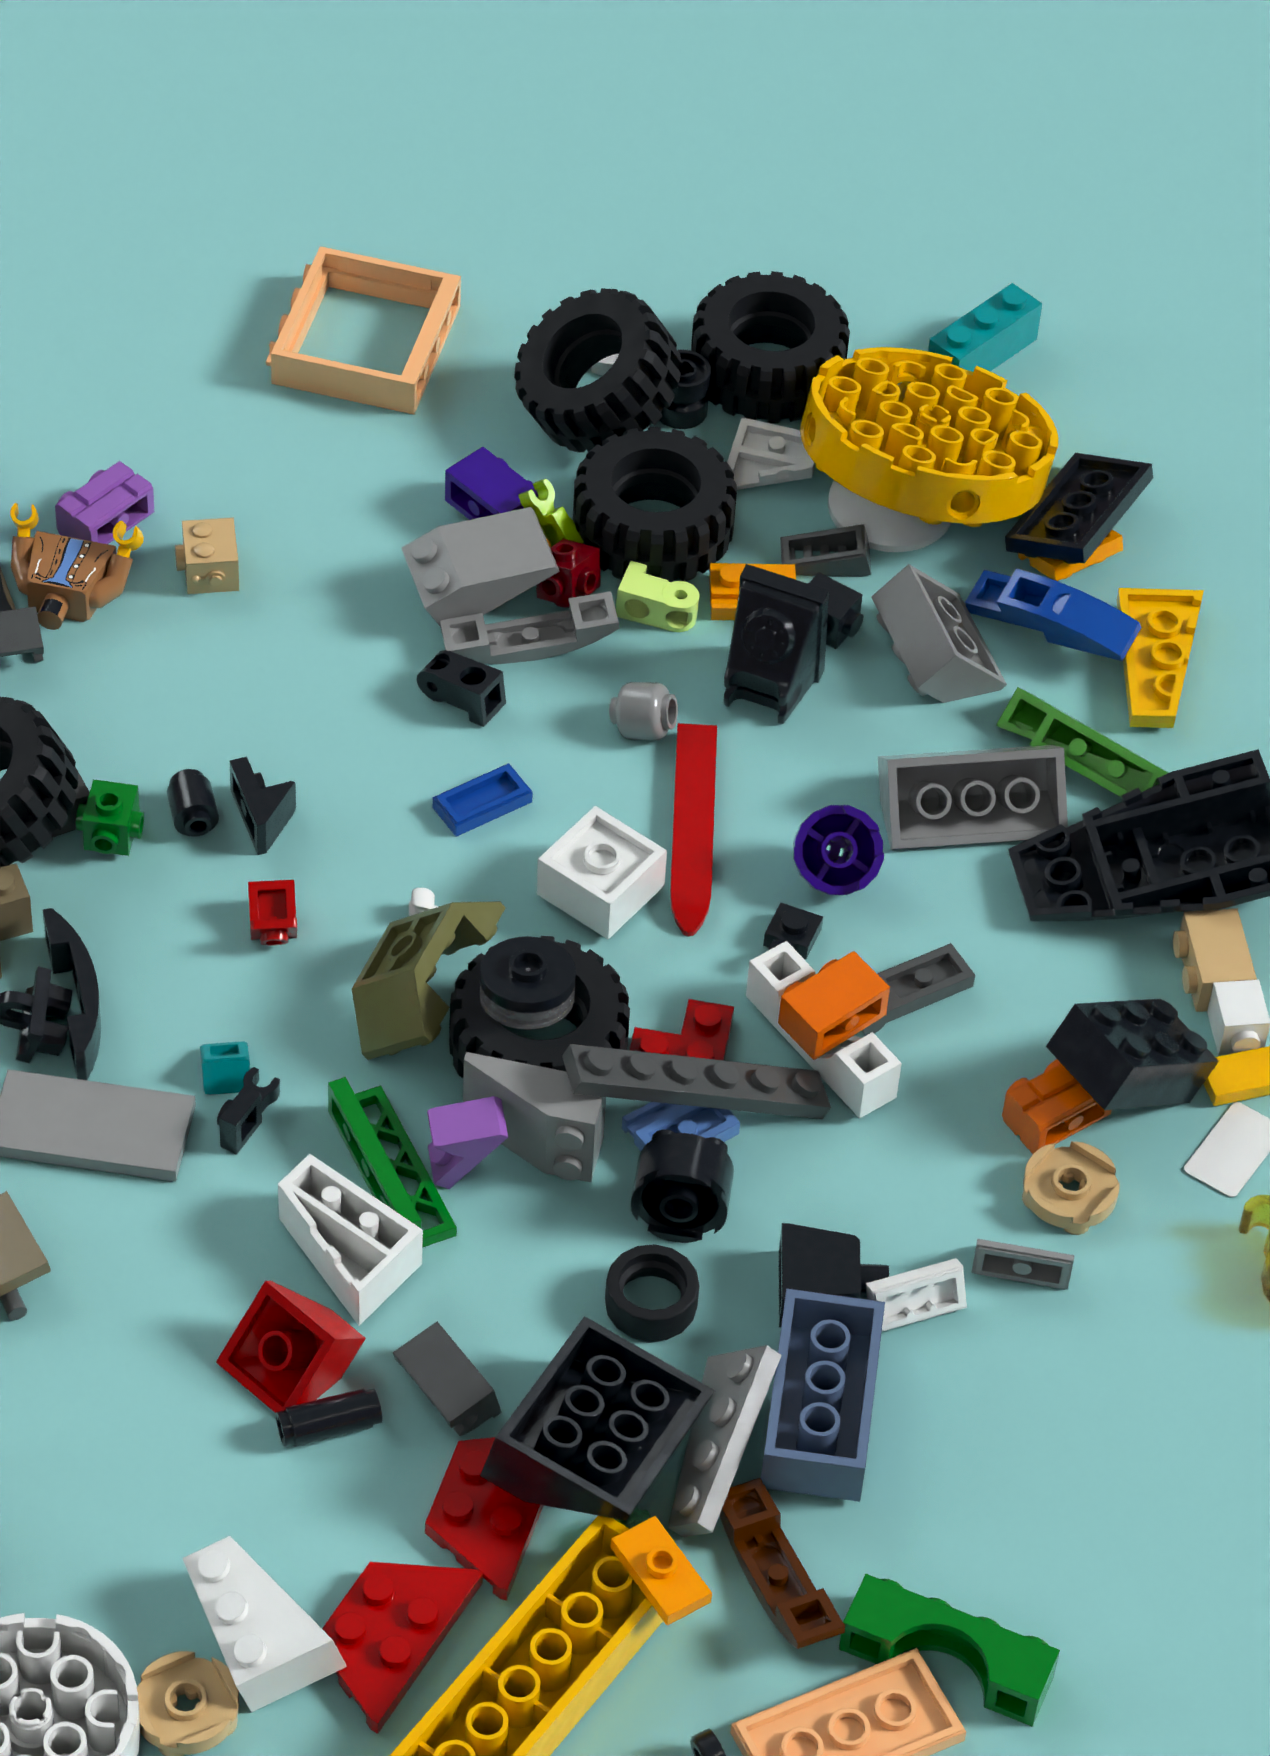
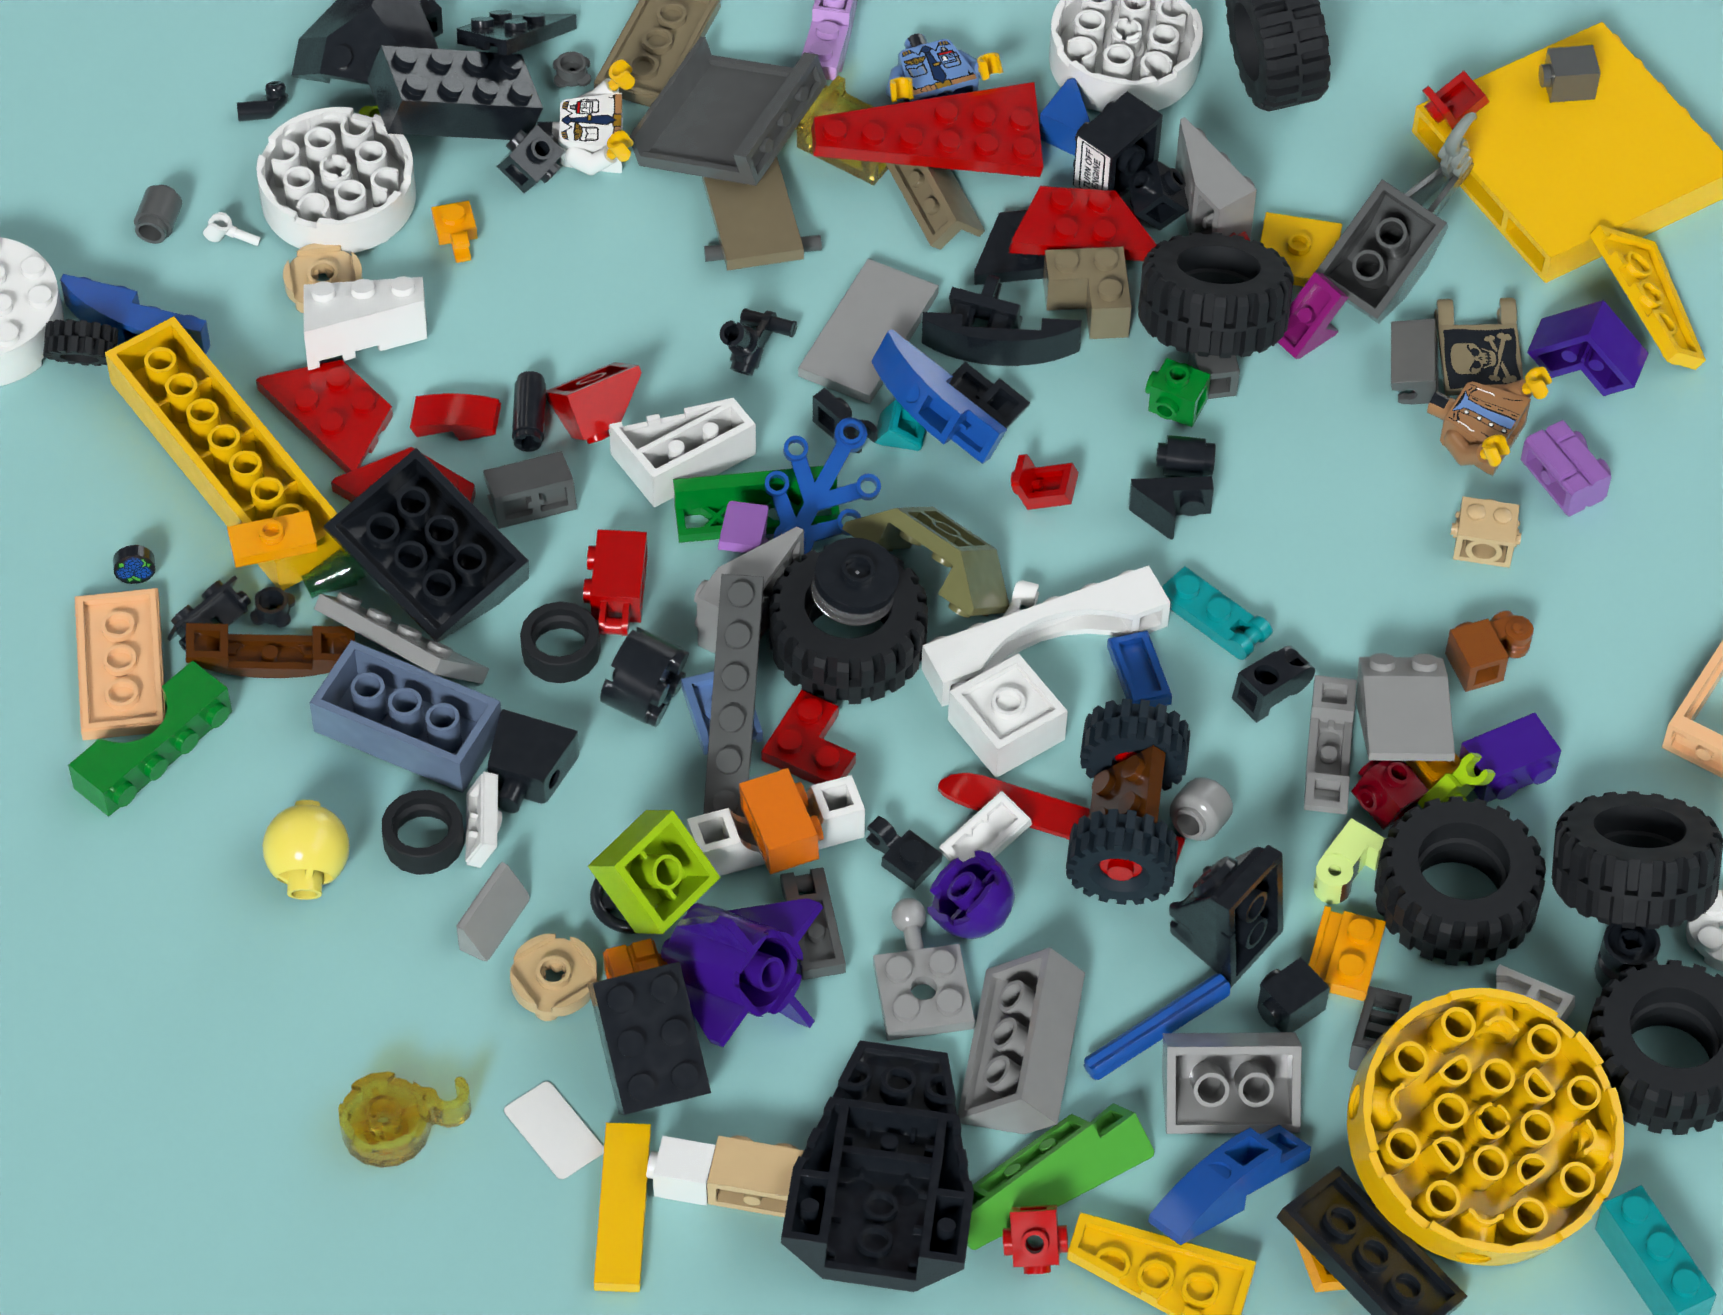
camera: 110 degrees right, 5 degrees up
(52, 1588) = (455, 225): none -> light orange plate
(160, 998) = (995, 399): none -> black slope
(173, 1219) = (748, 343): none -> black pin
(193, 1029) = (929, 398): none -> blue slope
(298, 1062) = (817, 494): none -> blue plant
(360, 541) = (1483, 648): none -> dark orange brick
(360, 1492) = (464, 414): none -> red slope
(386, 754) = (1215, 614): none -> teal plate
(411, 817) = (1112, 607): none -> white arch
(549, 1258) = (617, 579): none -> red brick
(681, 744) = (1121, 845): none -> black plate
(721, 1587) = (272, 598): none -> black plate
(744, 872) = (988, 830): none -> white plate
(747, 1660) = (219, 603): none -> black hinge
(897, 706) = (1152, 1028): none -> blue axle
(929, 906) = (935, 966): none -> light grey plate
(948, 1094) = (650, 875): none -> lime piece
(958, 1319) = (422, 804): none -> black tyre
(1011, 995) = (741, 962): none -> dark purple brick
(1038, 1431) = (306, 848): none -> light yellow brick
(1179, 734) = (1037, 1221): none -> red brick

